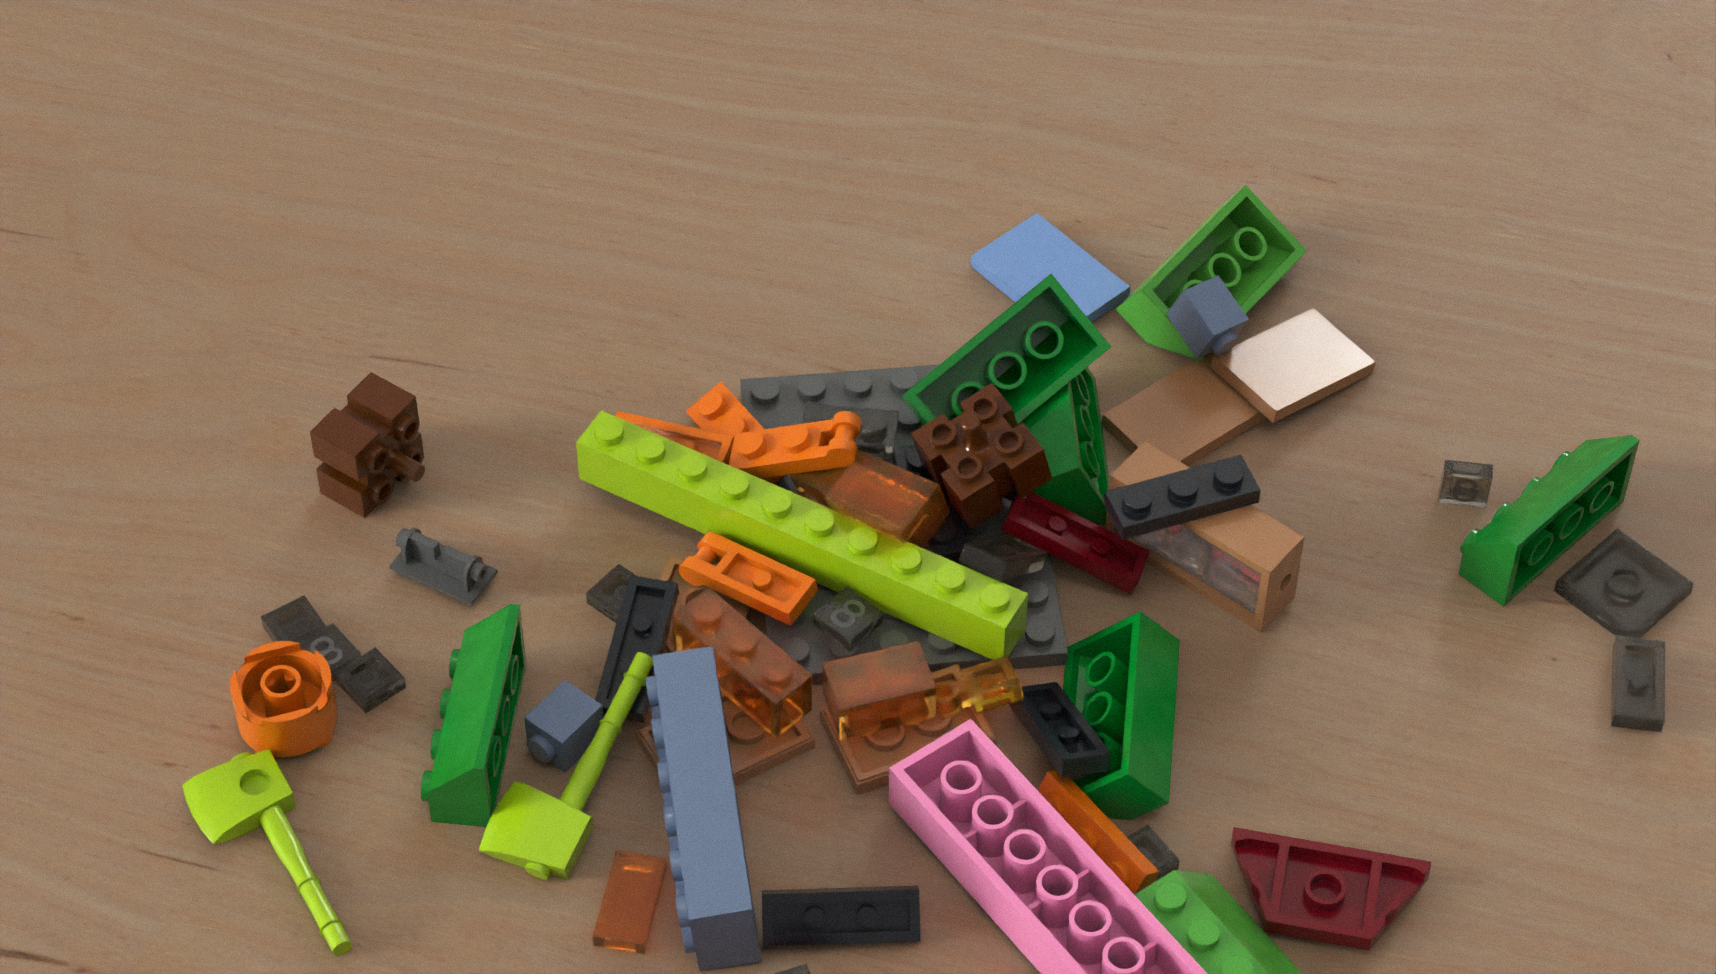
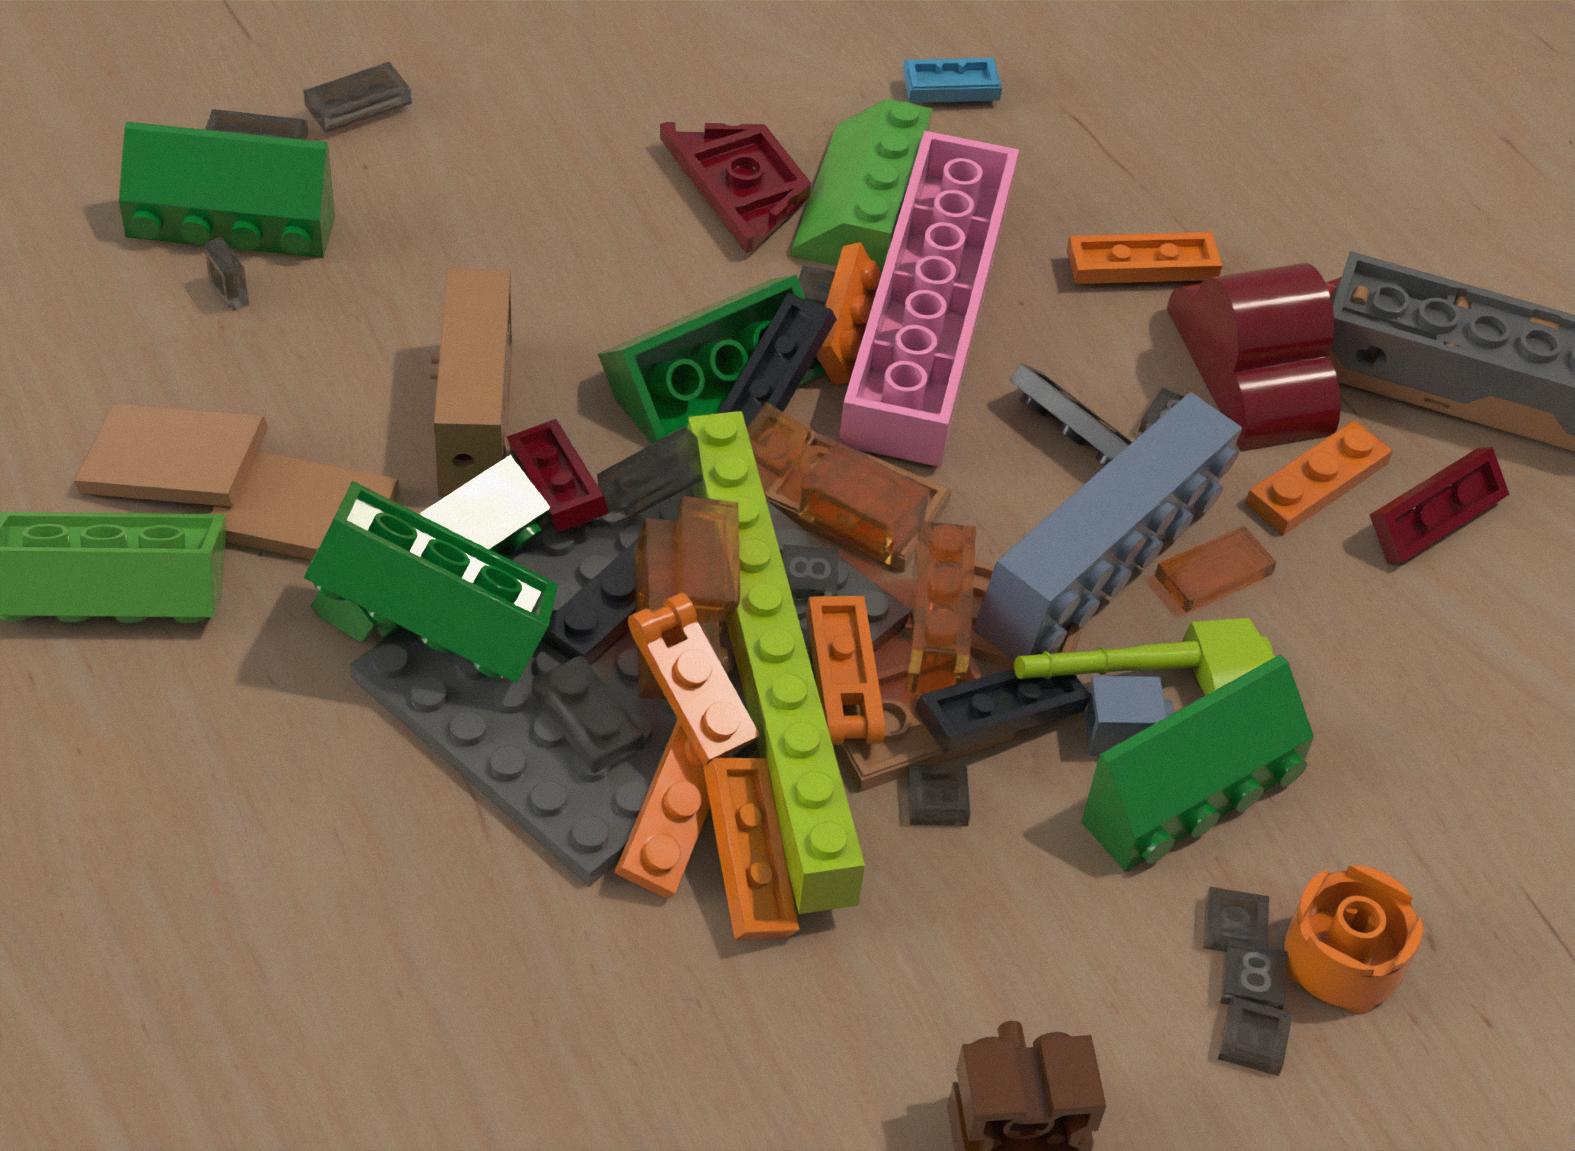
camera: 135 degrees left, 0 degrees up
(254, 794) = (1461, 918): lime piece -> none
(441, 566) = (1063, 956): dark grey hinge -> none
(981, 455) = (568, 523): reddish brown brick -> none
(1038, 249) = (195, 716): medium blue tile -> none
(1181, 497) = (487, 354): black plate -> none
(1208, 318) = (199, 493): sand blue brick -> none

